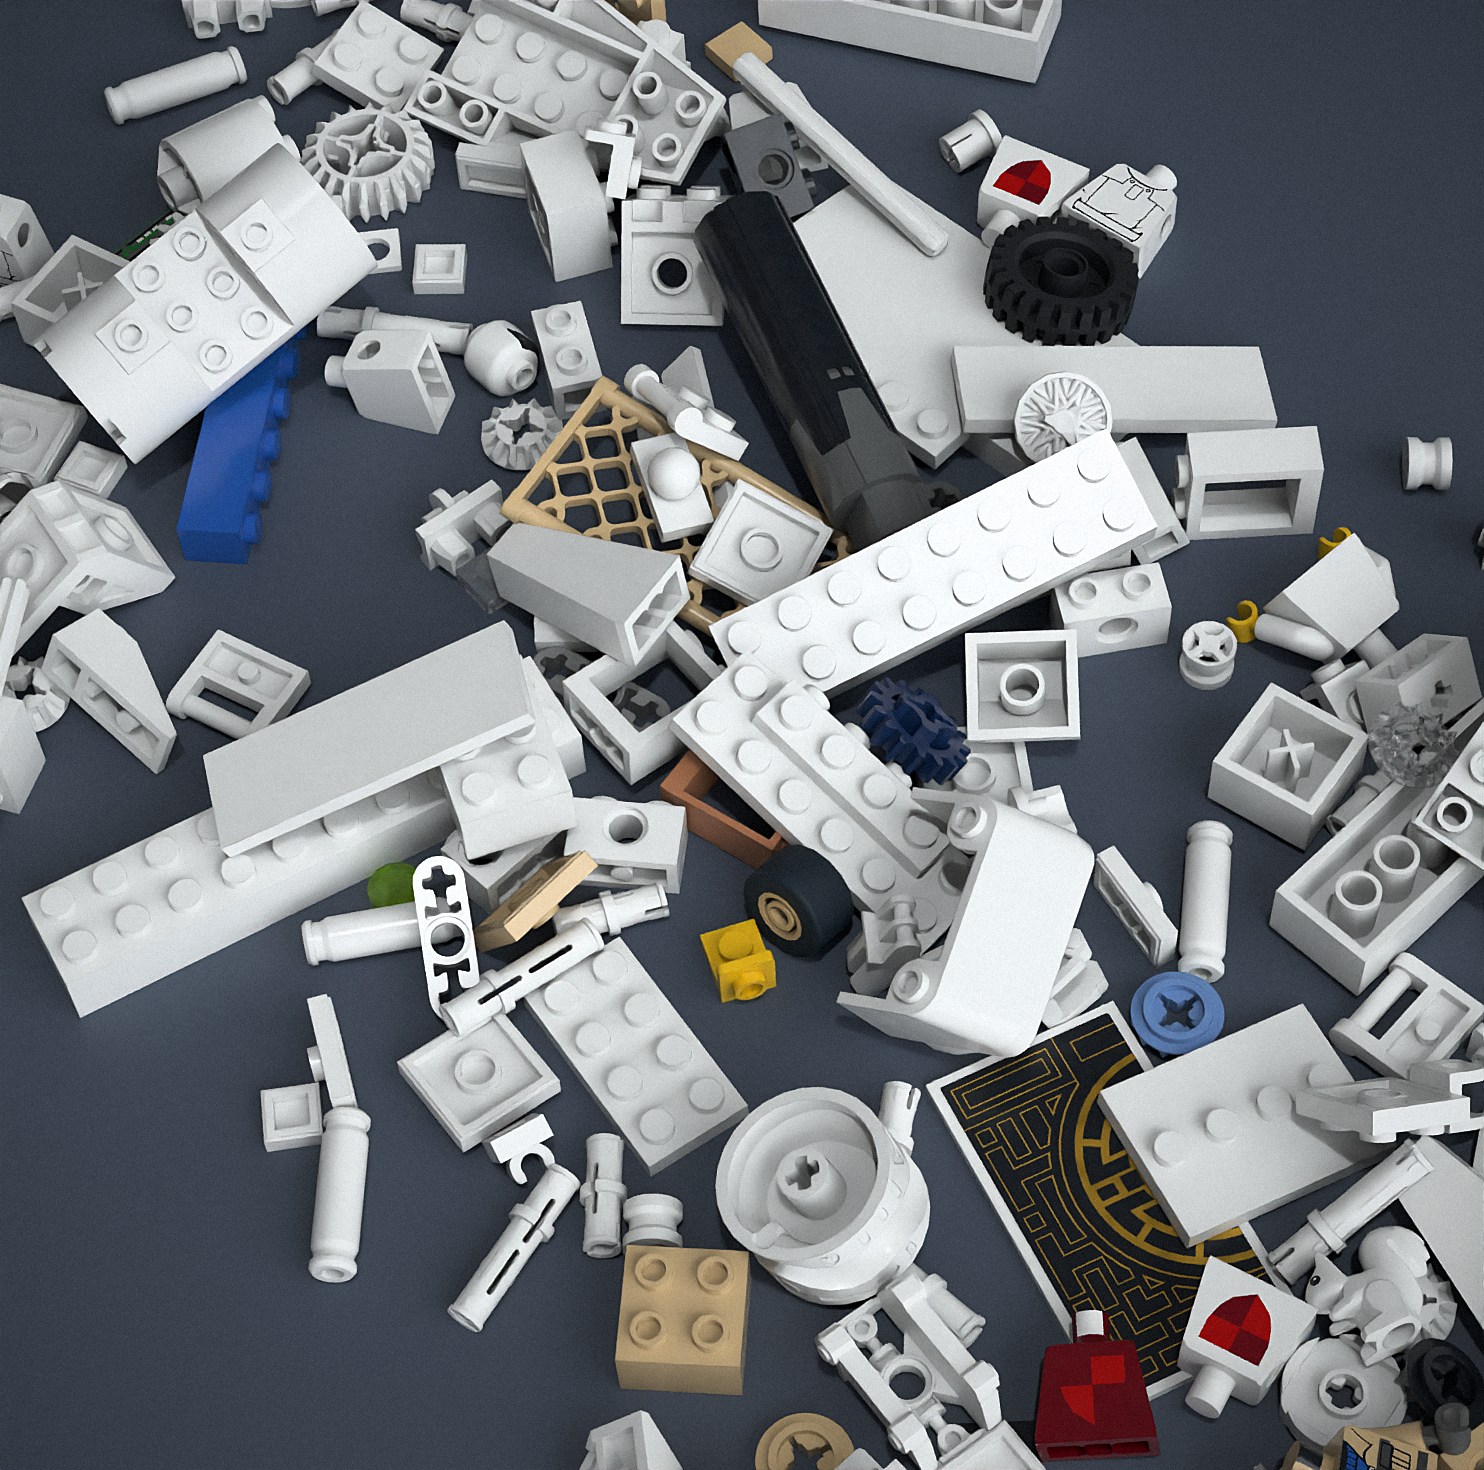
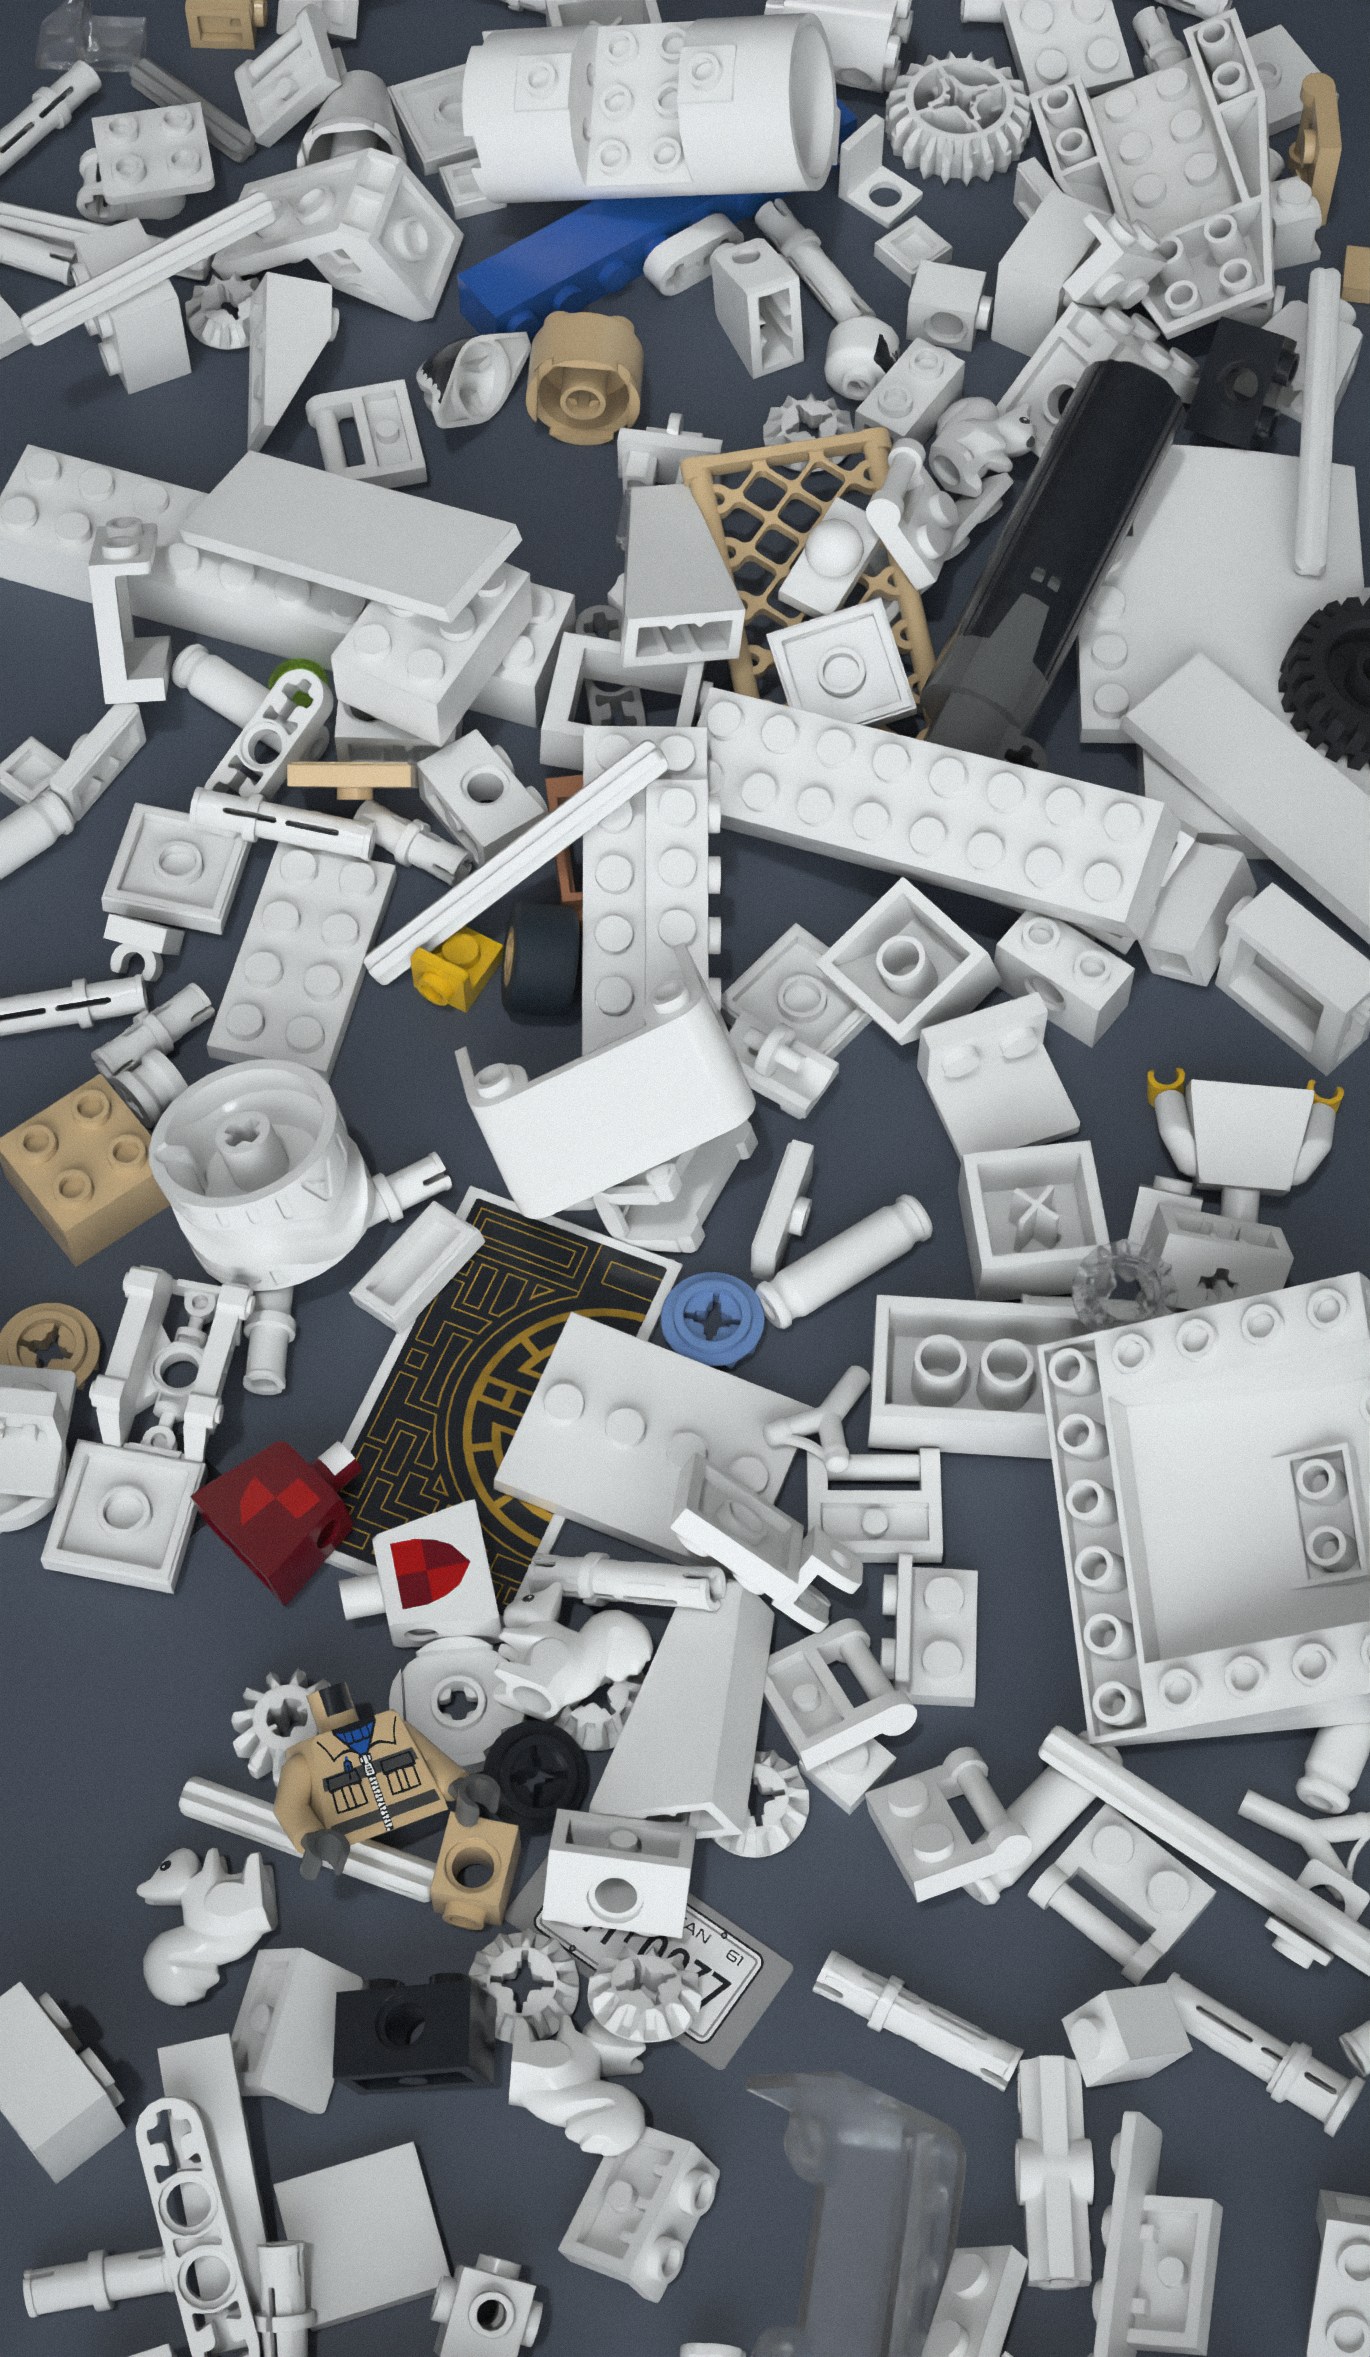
camera: 45 degrees right, 5 degrees up
(220, 907) = (130, 666): none -> white panel
(259, 591) = (472, 377): none -> white hat
(305, 387) = (686, 256): none -> white beam
(347, 519) = (585, 376): none -> tan brick
(513, 280) = (948, 305): none -> white brick
(652, 343) = (975, 440): none -> white animal
(724, 850) = (518, 861): none -> white axle
(883, 945) = (555, 1043): white arm -> none
(913, 730) = (771, 913): dark blue gear -> none
(964, 1165) = (417, 1267): none -> white tile
(1059, 413) = (1204, 782): white wheel -> none
(1155, 713) = (996, 1078): none -> white bracket
(1209, 641) = (1100, 1068): white wheel -> none
(1324, 1001) = (822, 1420): none -> white piece

